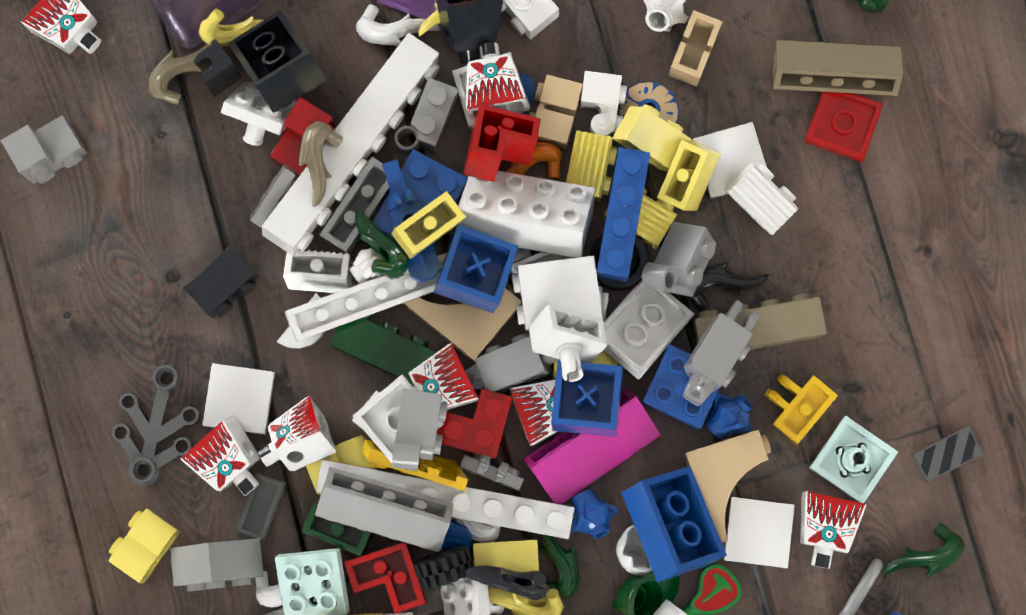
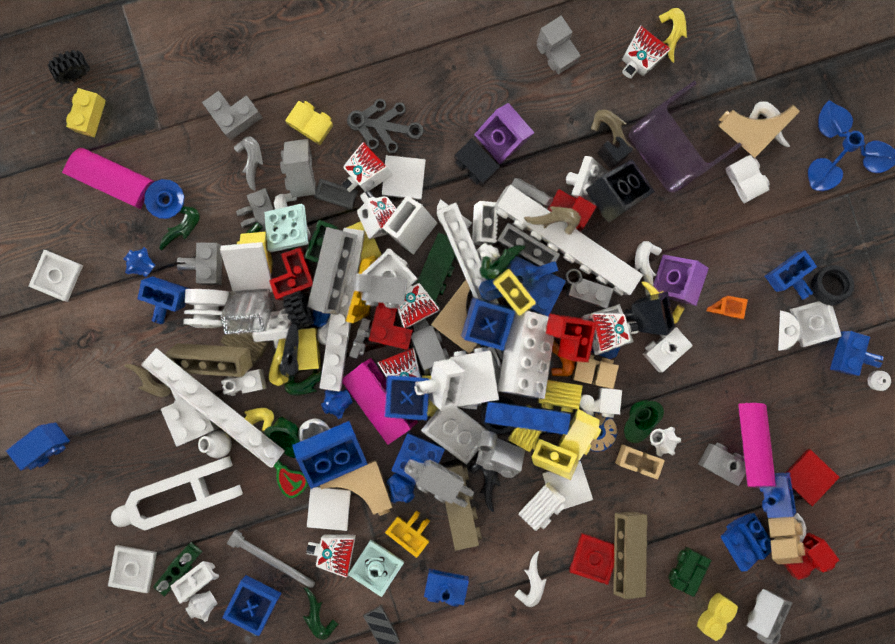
camera: 85 degrees right, 5 degrees up
(177, 238) = (503, 133): none -> medium lavender slope
(211, 29) = (637, 155): light yellow piece -> none
(316, 386) = (410, 224): none -> white brick
(631, 41) = (642, 420): none -> dark green piece
(882, 211) = (537, 585): none -> white piece
(884, 351) = (446, 587): none -> blue brick

